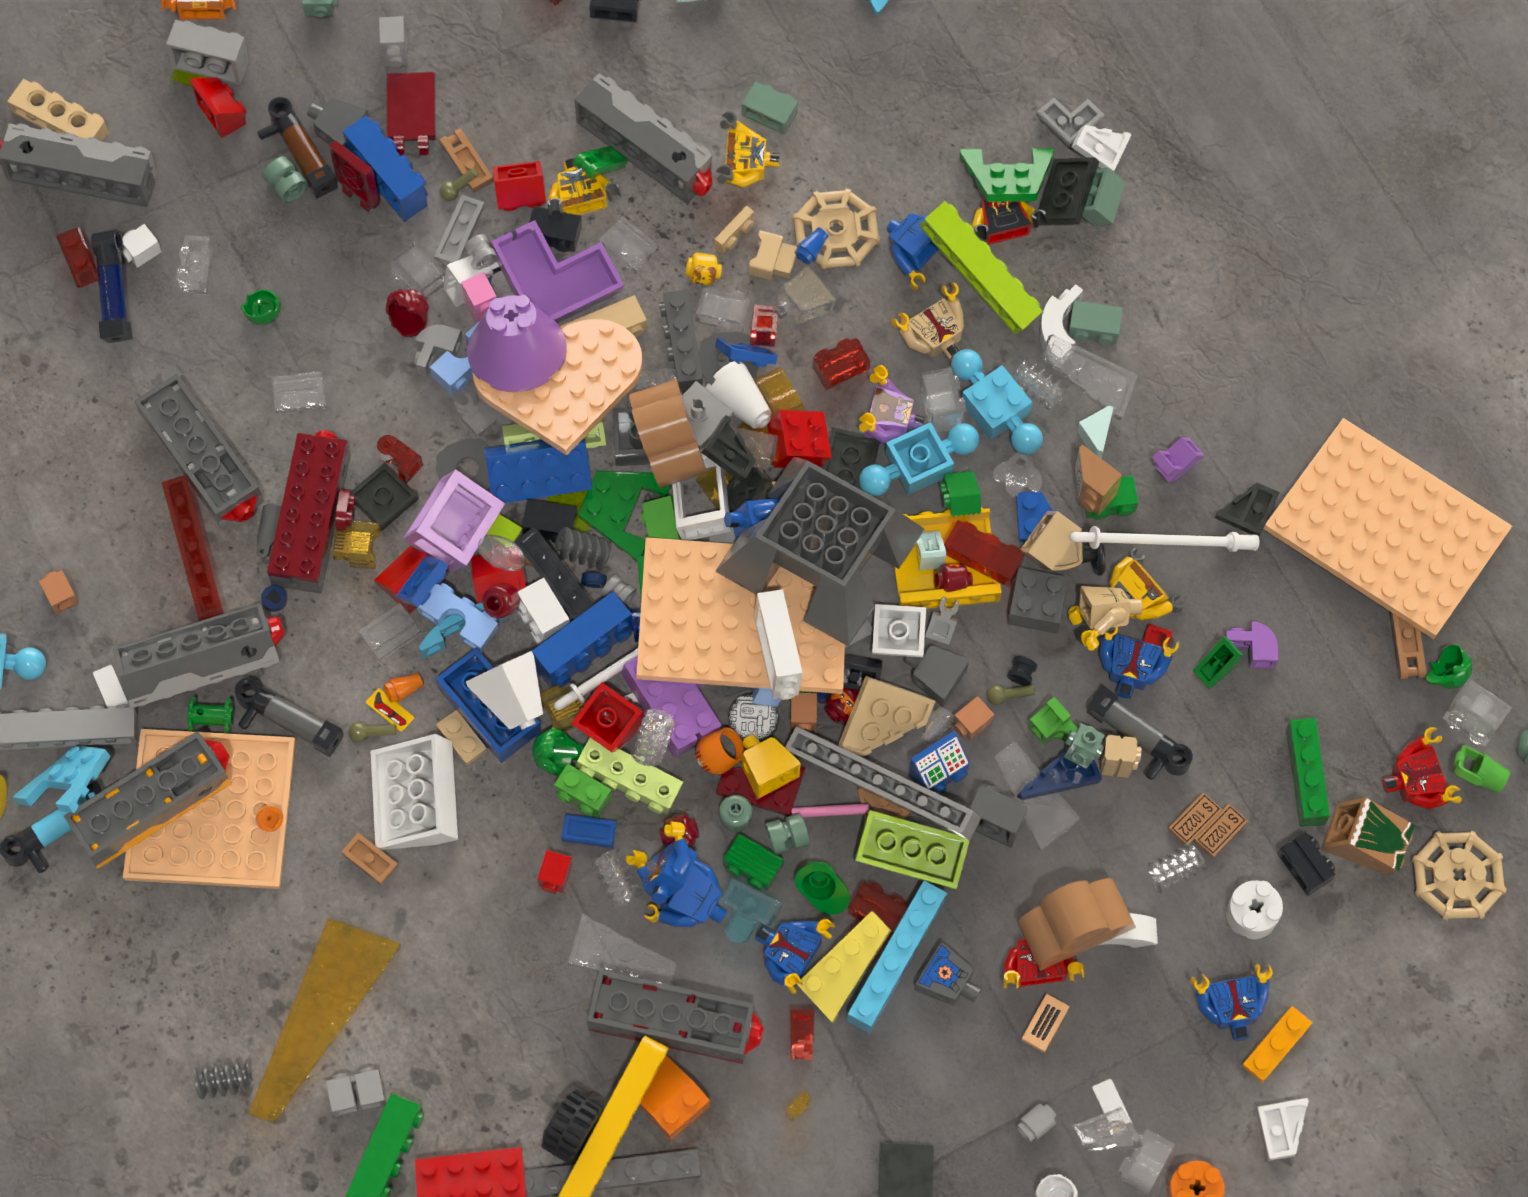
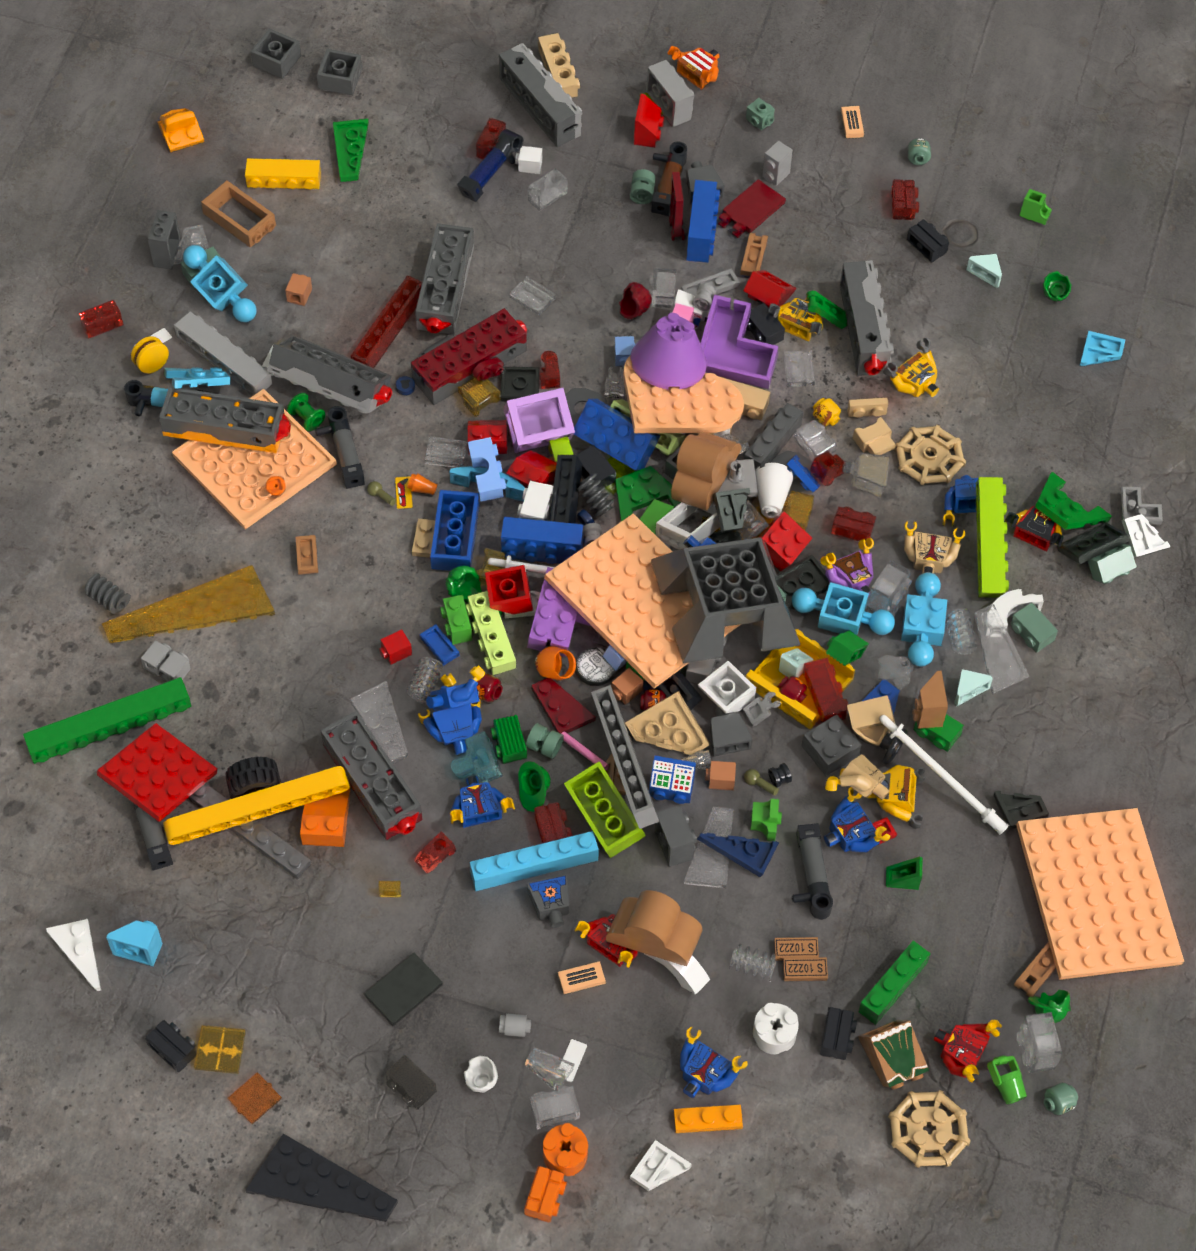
camera: 45 degrees right, 10 degrees down
(261, 307) = (559, 239): green hair -> none
(414, 793) = (367, 543): white slope -> none
(418, 586) = (475, 433): blue plate -> none
(435, 342) = (630, 326): light grey brick -> none
(450, 190) = (728, 262): olive bar -> none
(501, 552) = (544, 454): clear dish -> none
(501, 601) = (516, 477): dark red head -> none
(511, 691) = (469, 525): white slope -> none
(653, 737) = (521, 617): clear piece -> none
(735, 813) = (528, 704): sand green head -> none
(768, 765) = (573, 693): yellow torso -> none
(770, 107) = (959, 361): sand green brick -> none
(778, 644) = (638, 621): white window -> none
(811, 246) = (902, 448): blue cone -> none
(836, 974) = (493, 838): light yellow wing -> none
(1084, 745) = (769, 843): sand green brick -> none
(1119, 756) = (784, 868): tan brick -> none
(1177, 459) = (1002, 742): medium lavender brick -> none
(1259, 641) = (942, 886): medium lavender brick -> none

